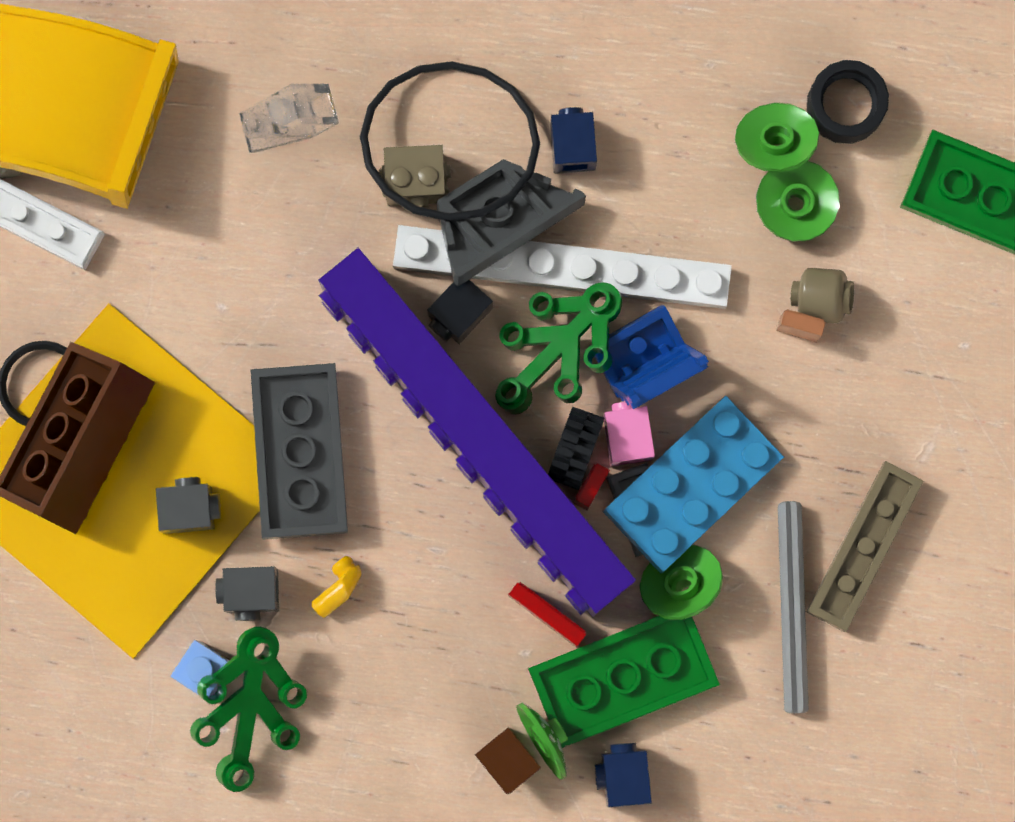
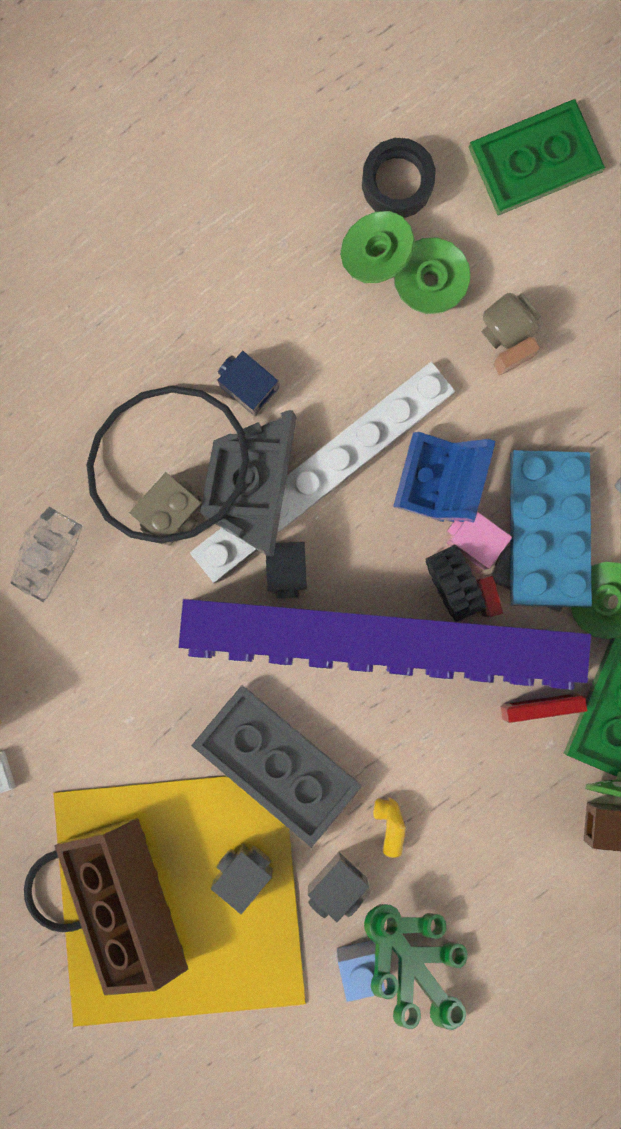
camera: 45 degrees left, 5 degrees up
(562, 342) = (375, 522): green plant -> none

